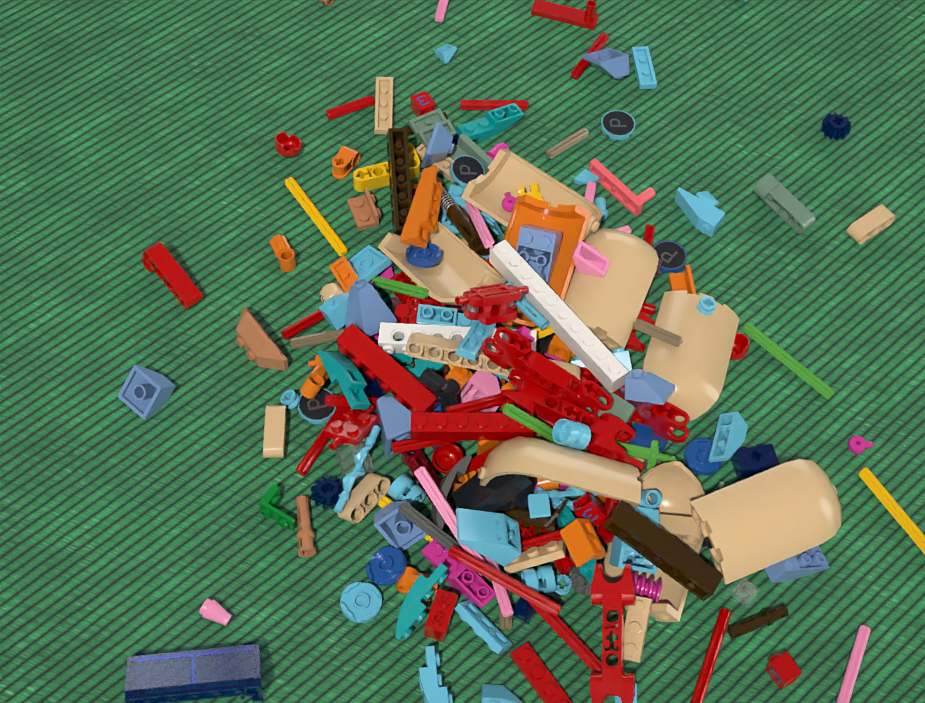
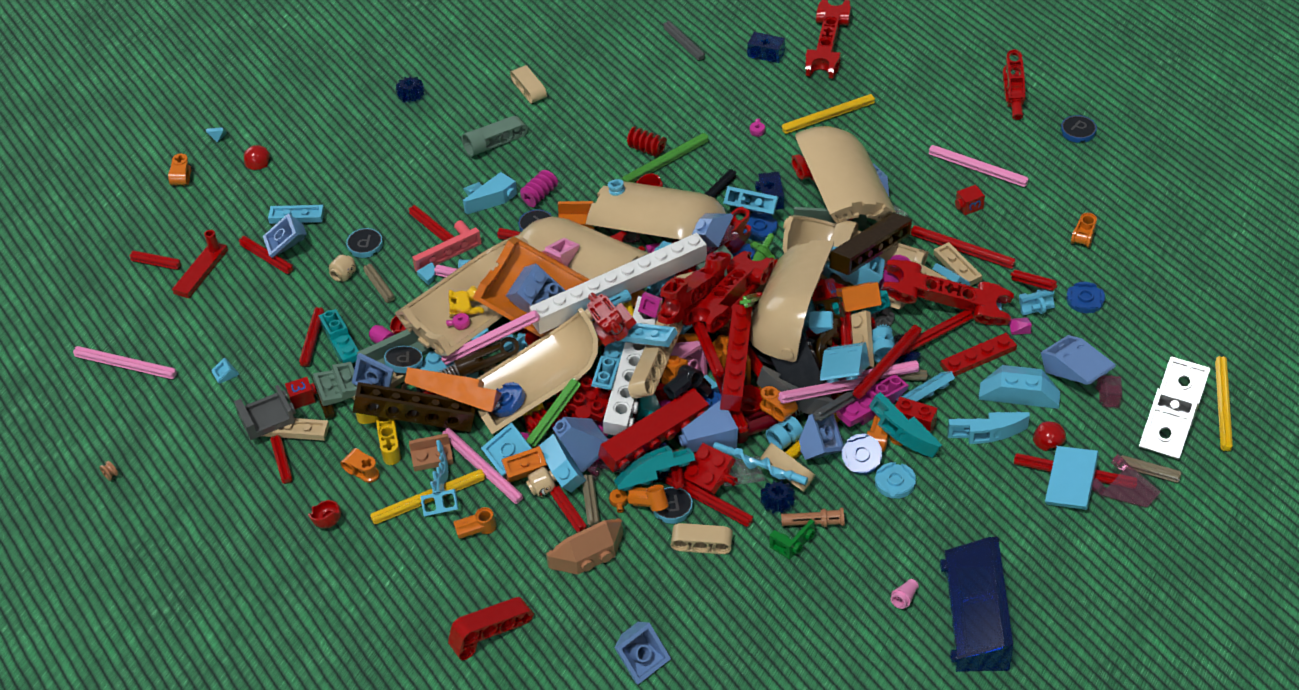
camera: 75 degrees left, 10 degrees down
(290, 399) = (658, 523): medium azure bush -> none
(323, 215) = (440, 477): none -> medium azure piece
(355, 248) = (479, 463): none -> bright pink axle
(389, 82) = (266, 414): none -> dark grey panel
(436, 468) = (772, 406): none -> orange piece
(571, 434) = (756, 281): medium azure wheel -> none
(579, 112) = (342, 268): none -> tan head
(650, 172) = (430, 223): none -> red axle
(650, 645) = (950, 274): none -> medium azure tile
(658, 333) = (642, 222): dark tan axle -> none
(675, 658) = (957, 263): none -> tan plate
(713, 249) = (538, 188): none -> dark pink piece
(714, 26) = (256, 157): none -> red hair
(750, 410) = (722, 183): none -> black axle
(765, 618) = (916, 198): dark brown pin -> none
(804, 337) = (646, 142): none -> red piece

